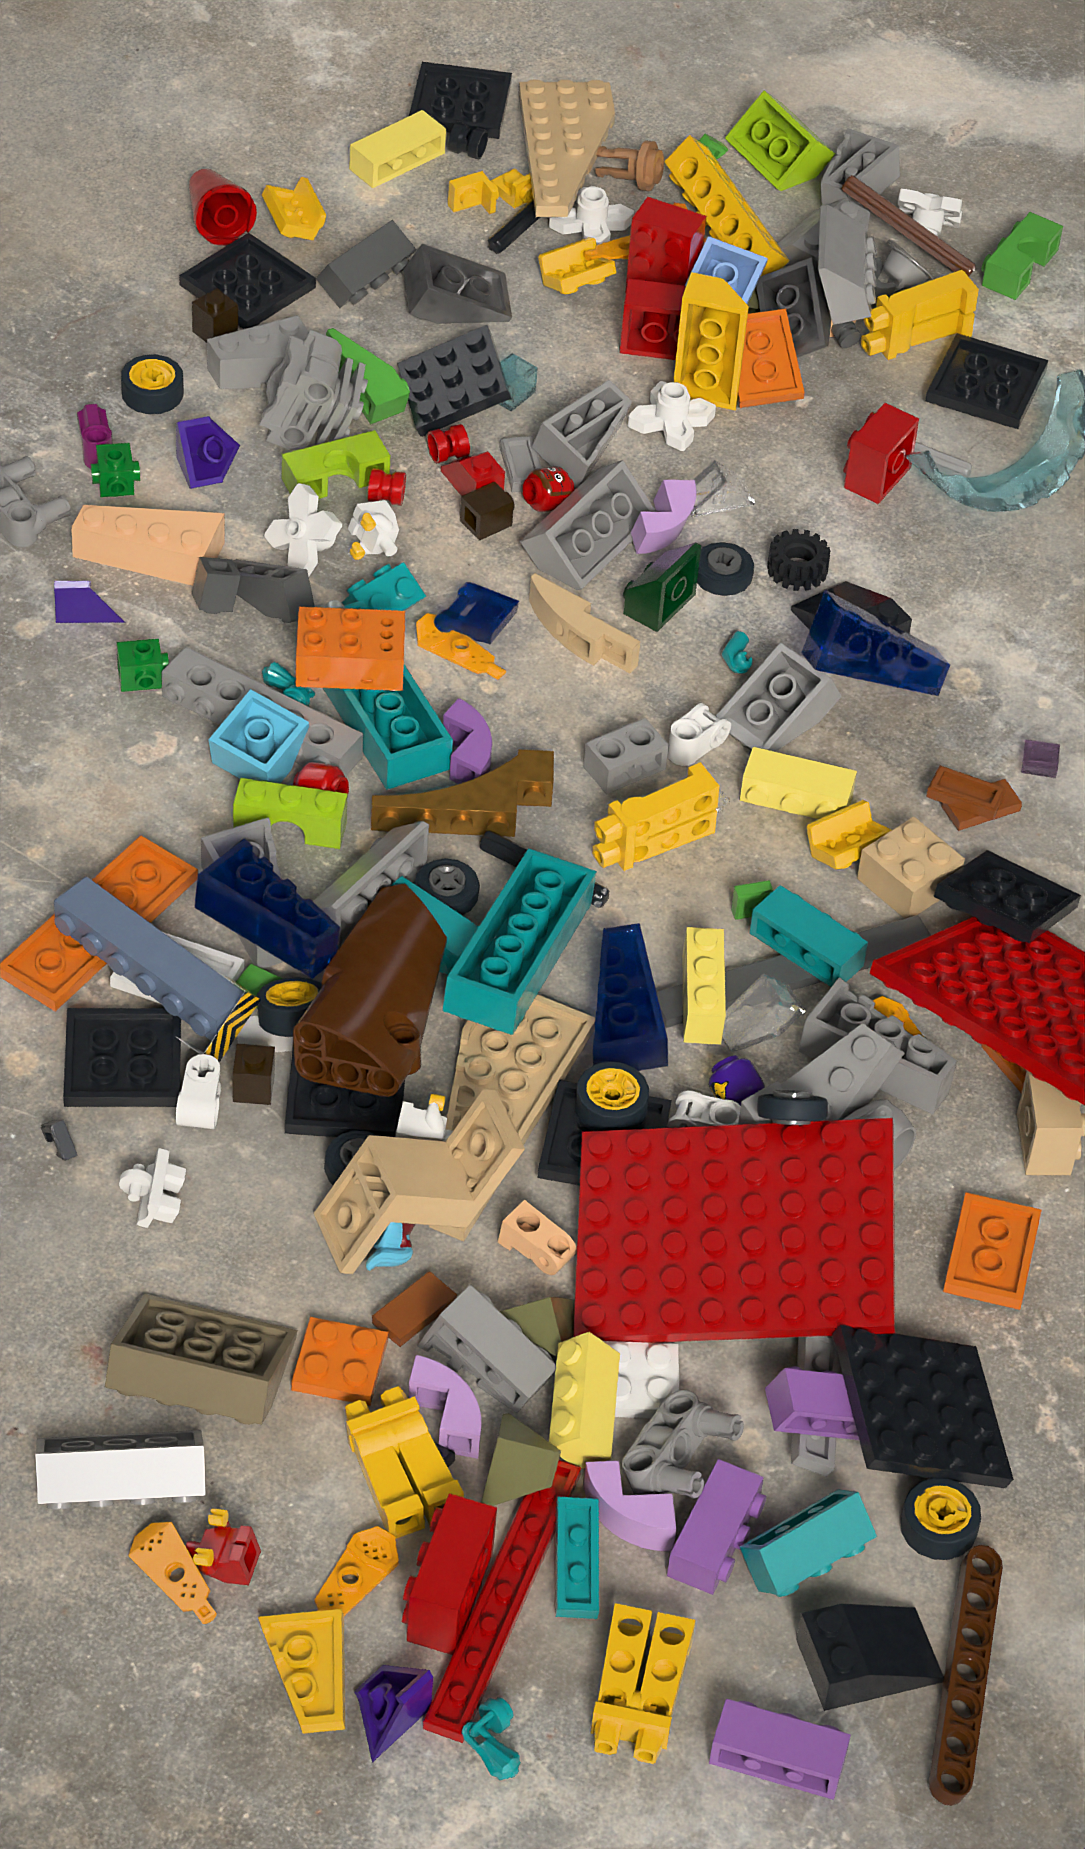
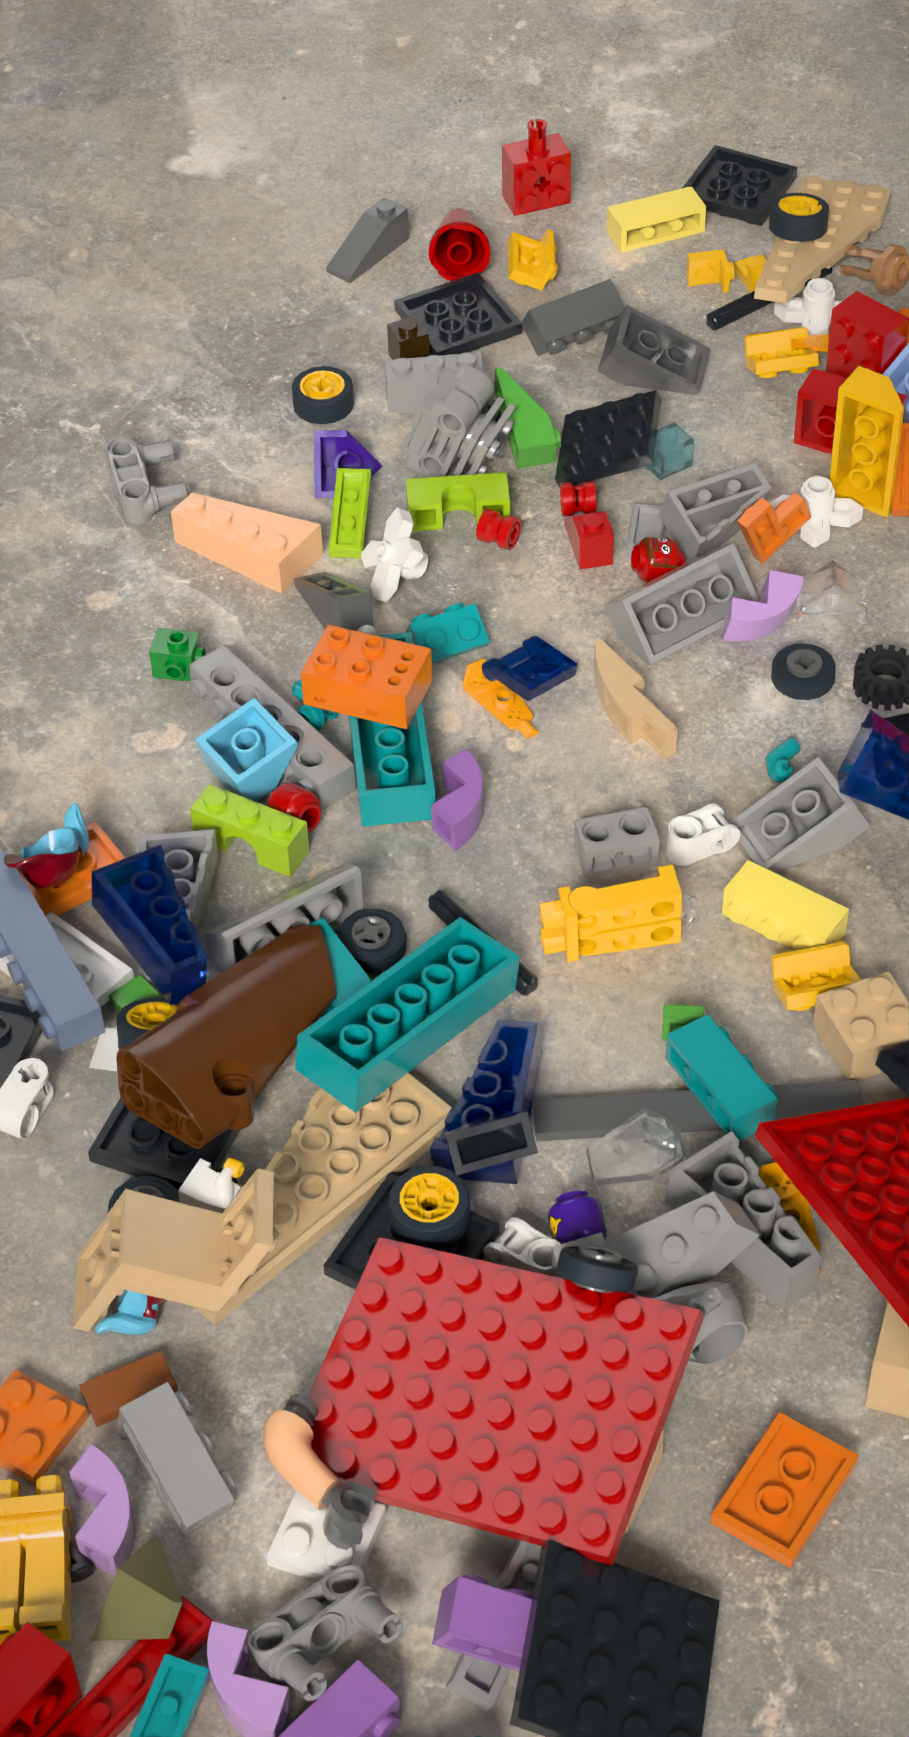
camera: 25 degrees right, 0 degrees up
(80, 604) = (154, 585): dark purple slope -> none
(93, 431) = (245, 433): magenta piece -> none
(115, 470) = (244, 467): green brick -> none
(124, 216) = (371, 239): none -> dark grey slope
(129, 870) = (55, 854): none -> hair
(215, 585) = (284, 591): dark grey brick -> none
(232, 1025) = (79, 1033): sticker -> none
(237, 497) = (349, 513): none -> lime tile
(253, 1074) = (83, 1091): dark brown brick -> none
(264, 118) = (536, 171): none -> red brick
(376, 529) = (467, 565): white piece -> none
(468, 140) = (726, 221): black wheel -> none
(475, 805) = (442, 861): pearl gold arch -> none
(487, 510) = (587, 569): dark brown brick -> none
(537, 1238) = (287, 1343): light nougat leg -> none
(545, 1321) = (242, 1450): olive slope -> none
(546, 127) = (798, 217): none -> black wheel
(584, 1399) = (244, 1547): light yellow brick -> none
(587, 1312) = (289, 1450): none -> piece
(644, 435) = (770, 529): none -> orange plate
(649, 1029) = (490, 1141): none -> black slope
(663, 587) = (729, 679): dark green slope -> none
(703, 985) = (582, 1106): light yellow brick -> none

